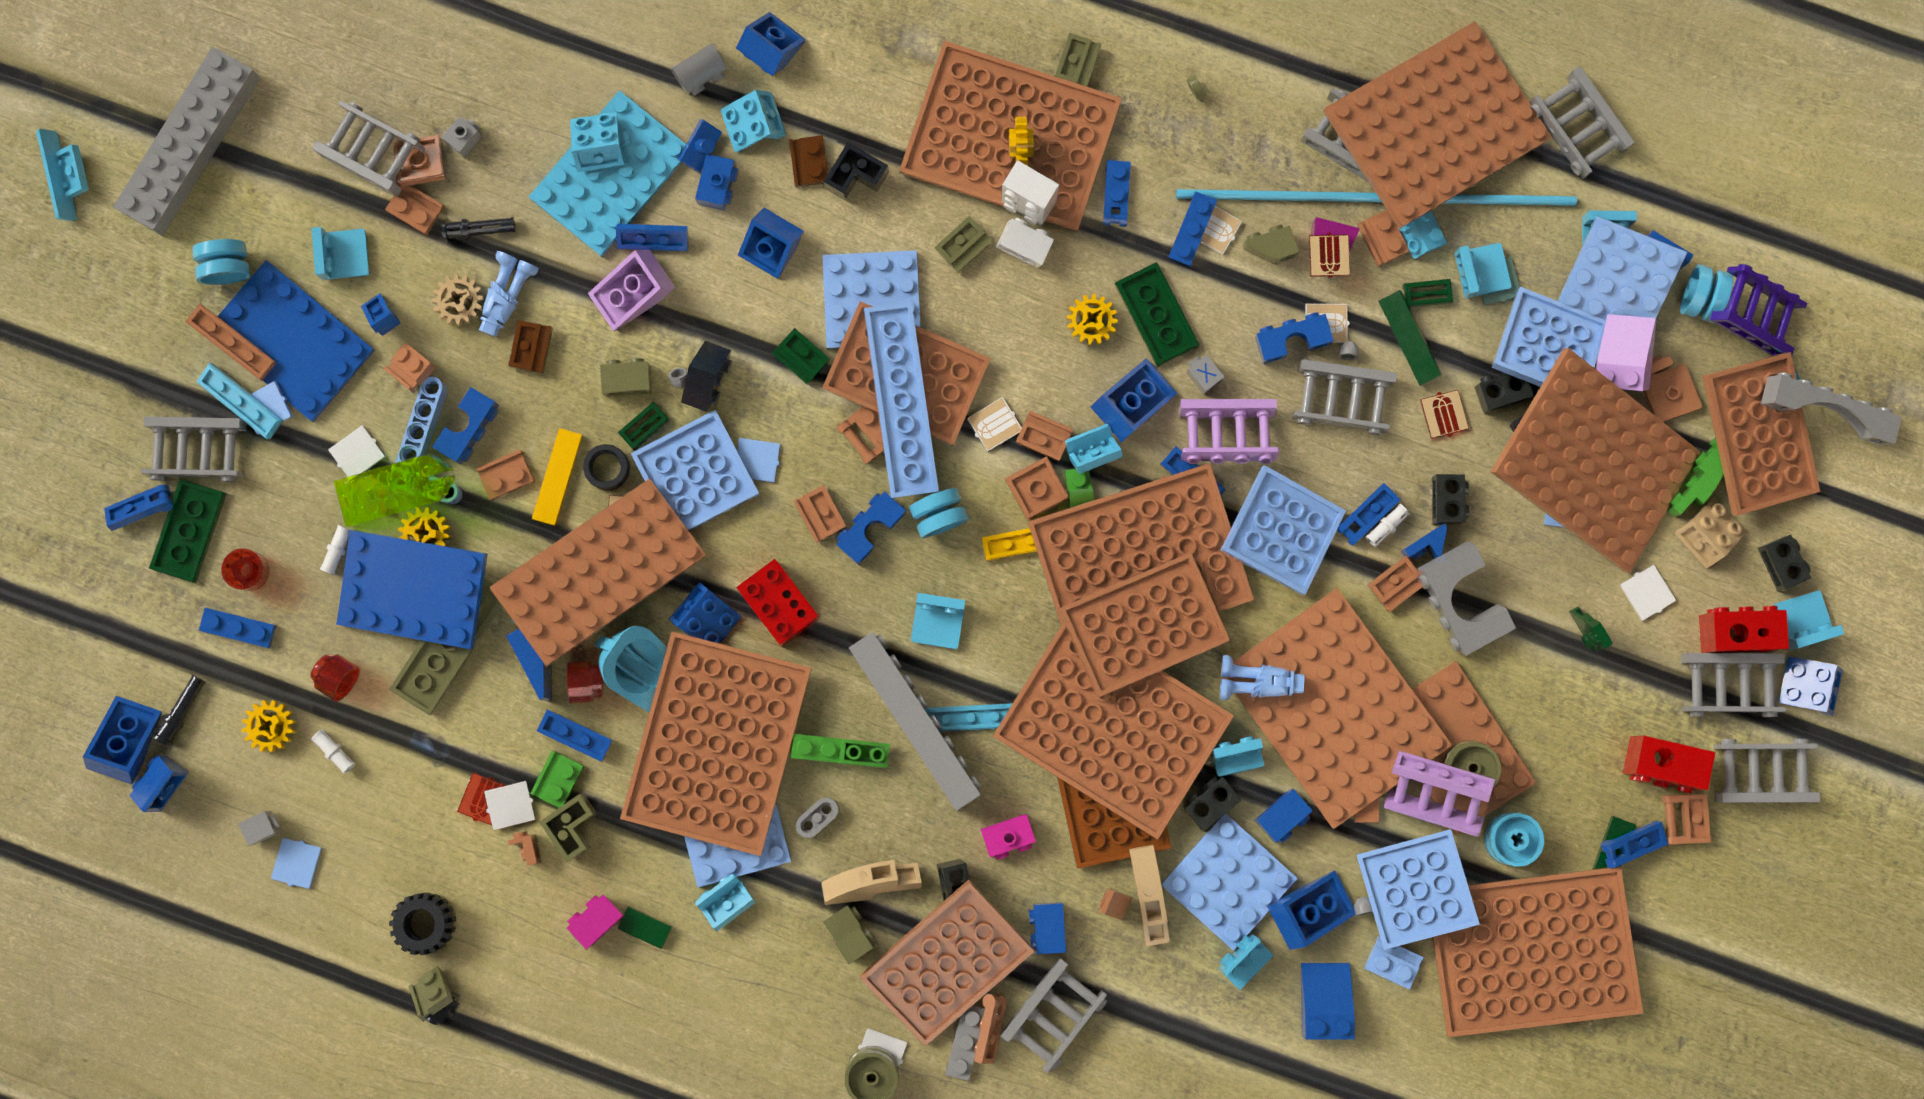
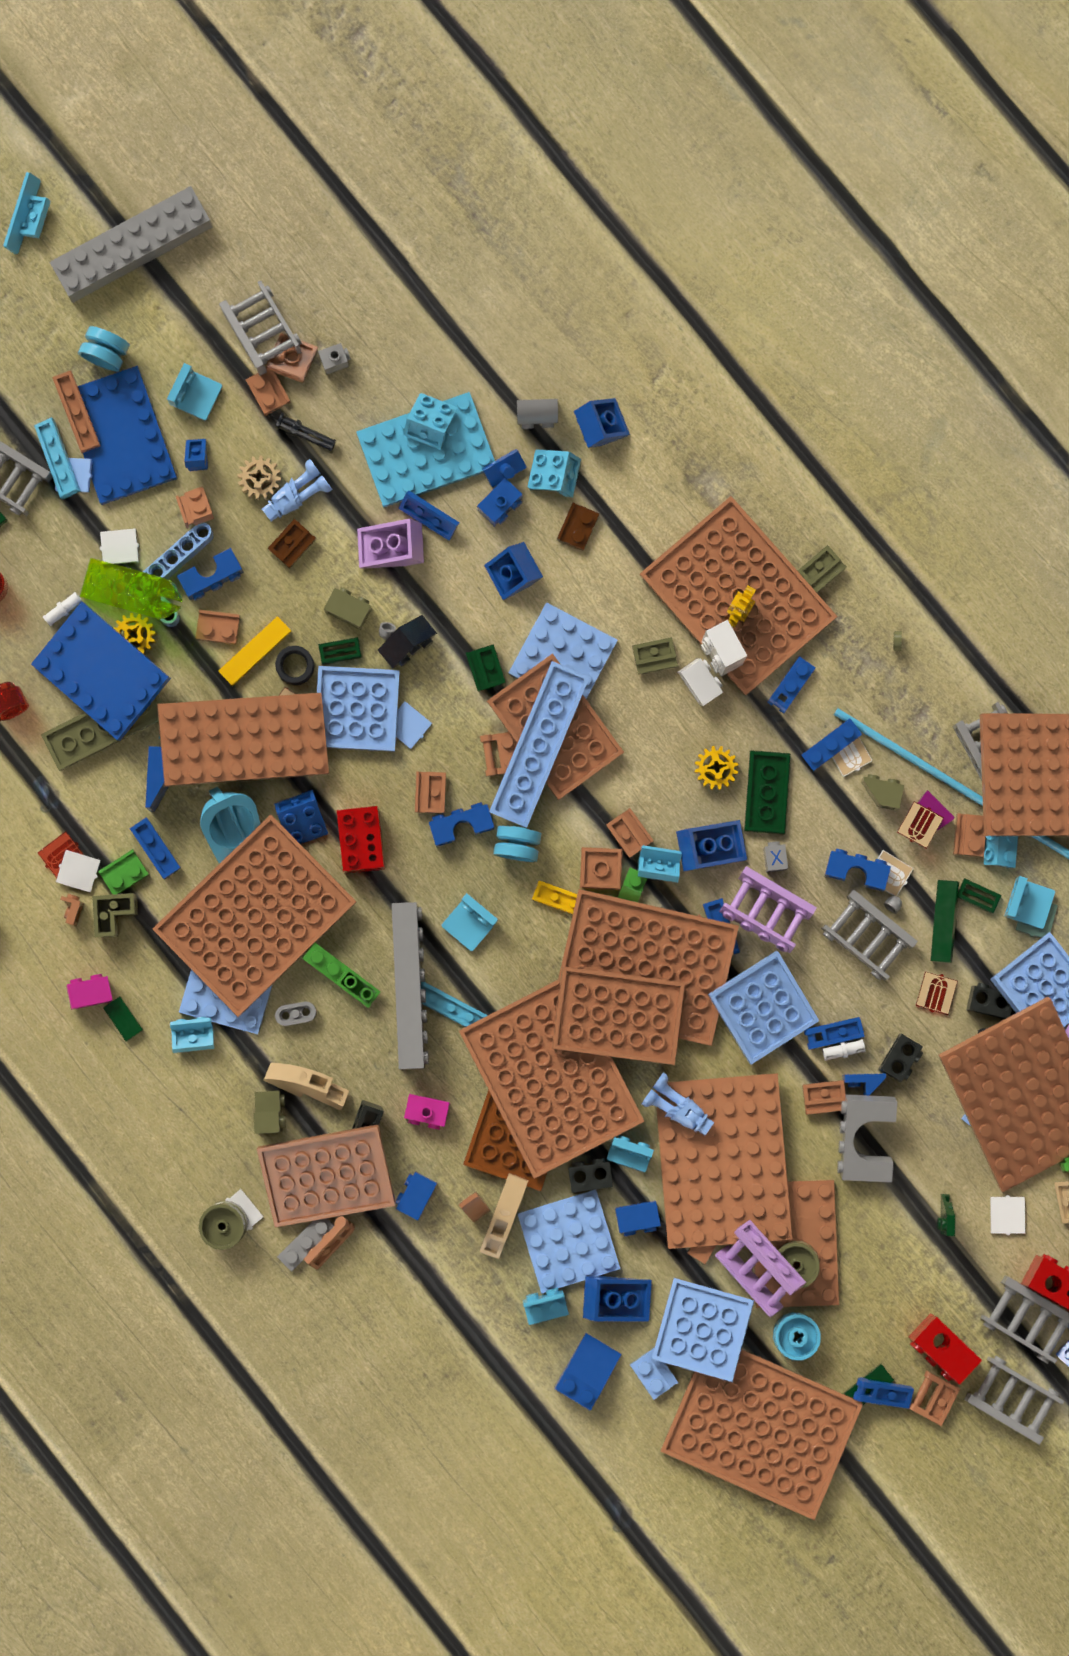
camera: 25 degrees right, 0 degrees up
(584, 682) = (185, 813): clear red piece -> none
(855, 166) = (607, 550): black brick -> none
(994, 424) = (598, 802): piece -> none
(1030, 1012) = (366, 1249): light grey fence -> none
(1362, 906) = (655, 1318): light grey hinge -> none

